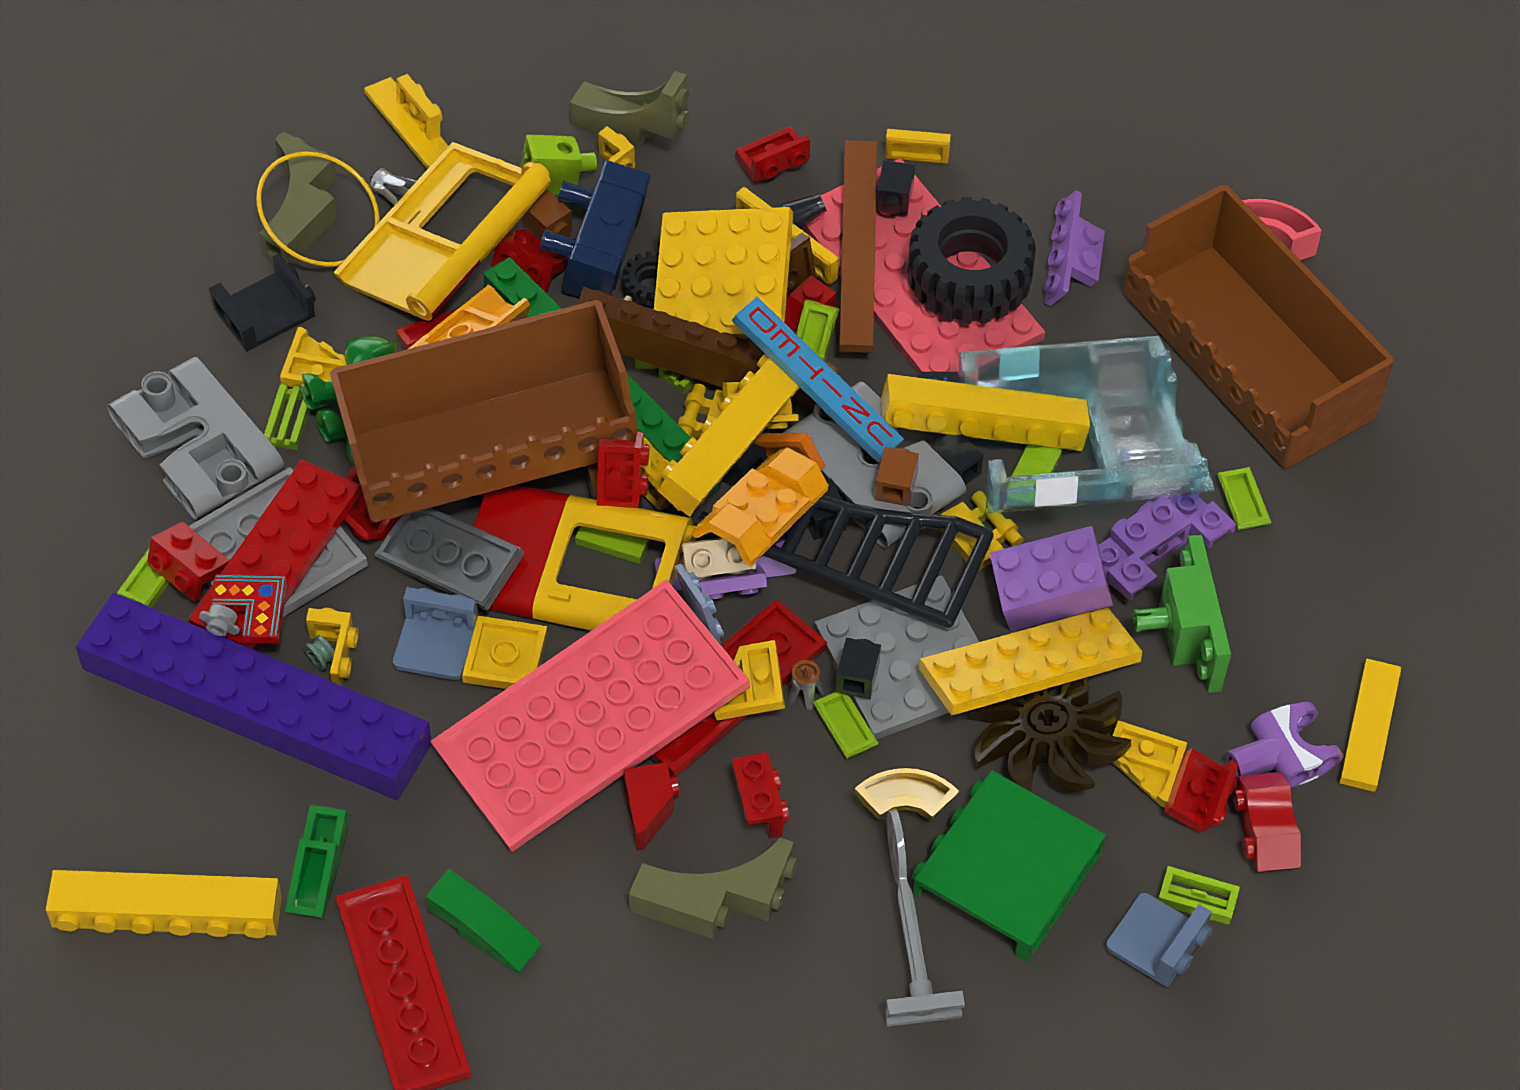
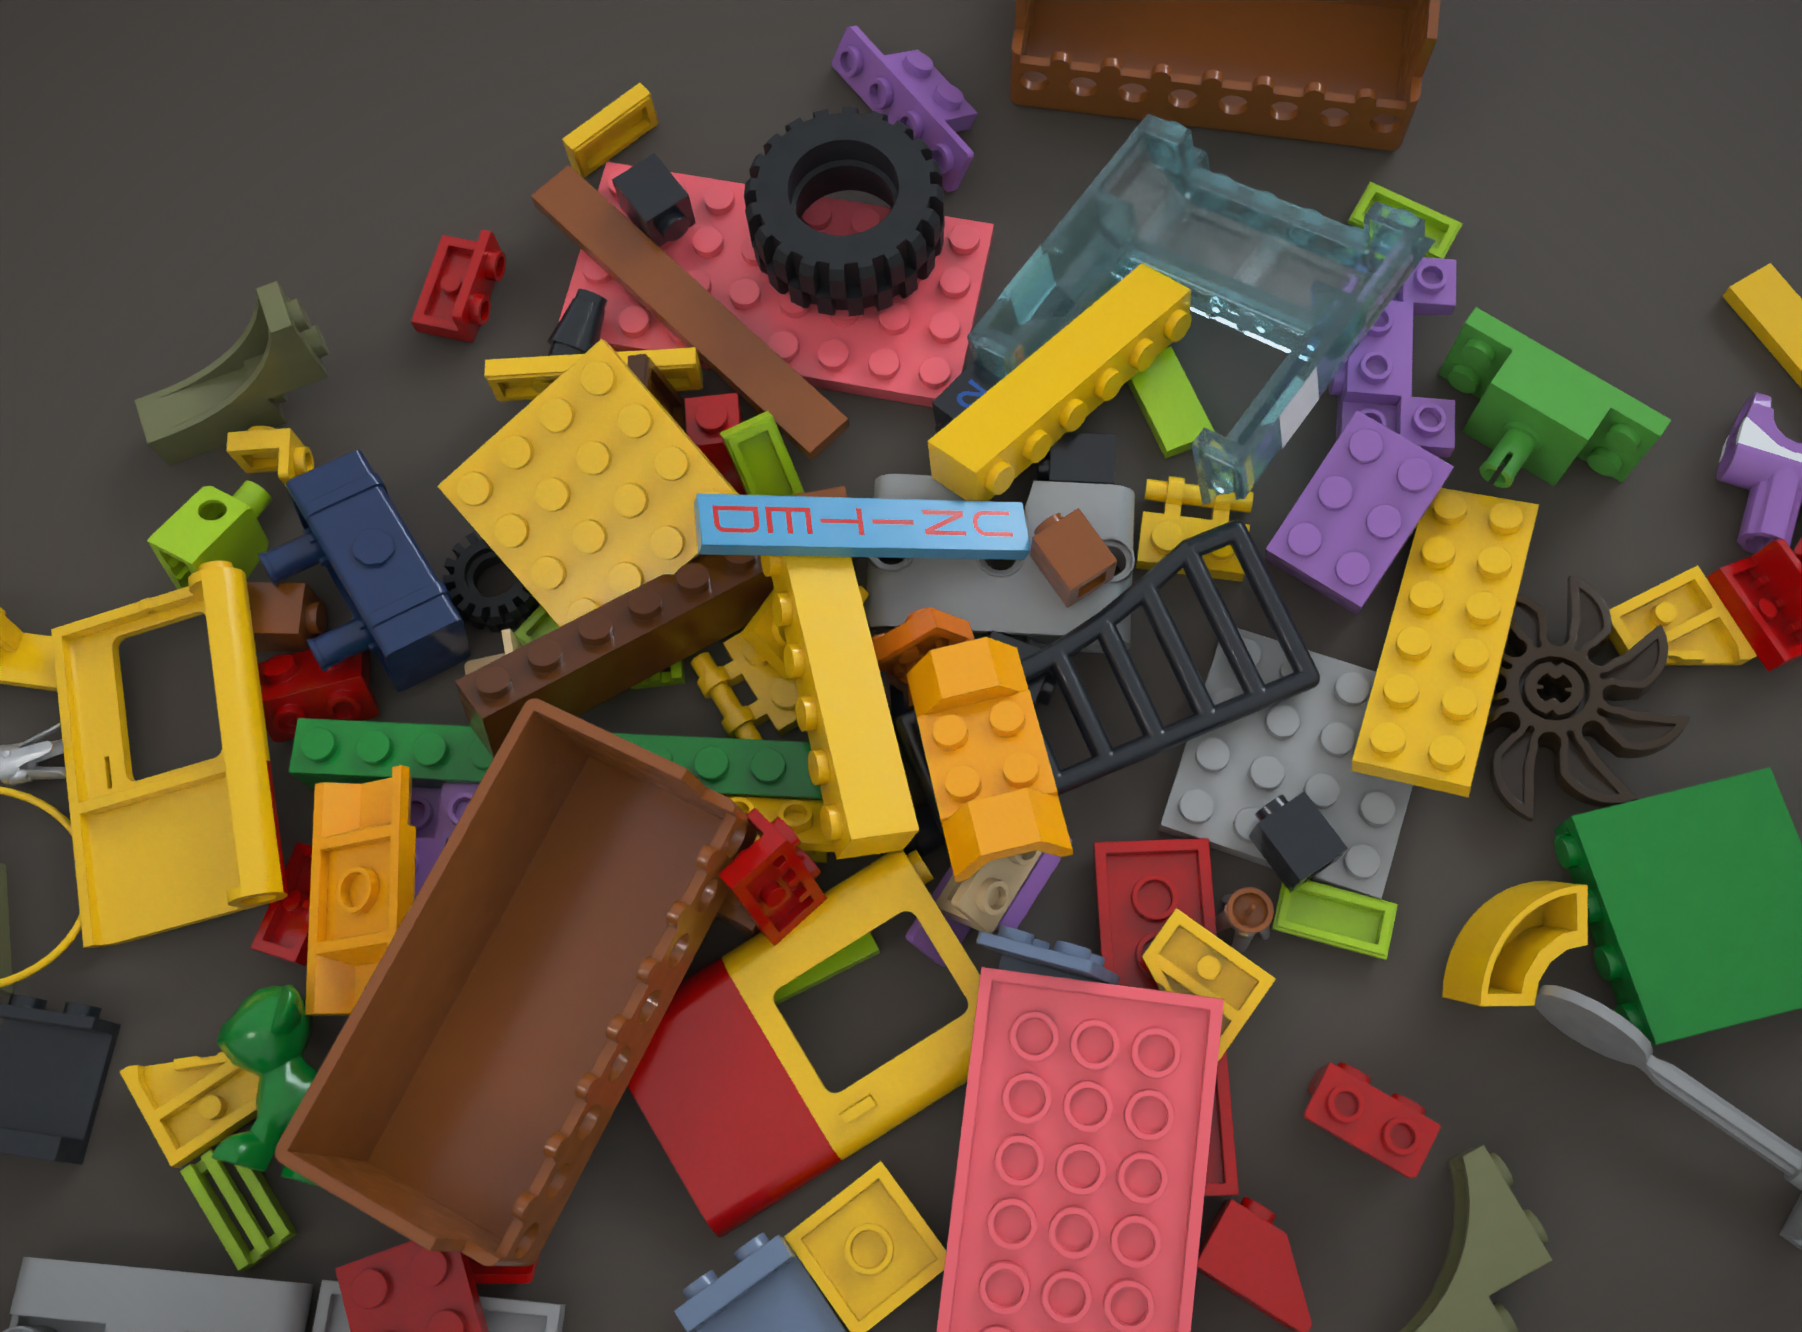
camera: 40 degrees left, 15 degrees up
(450, 555) = (671, 1194): dark grey tile -> none

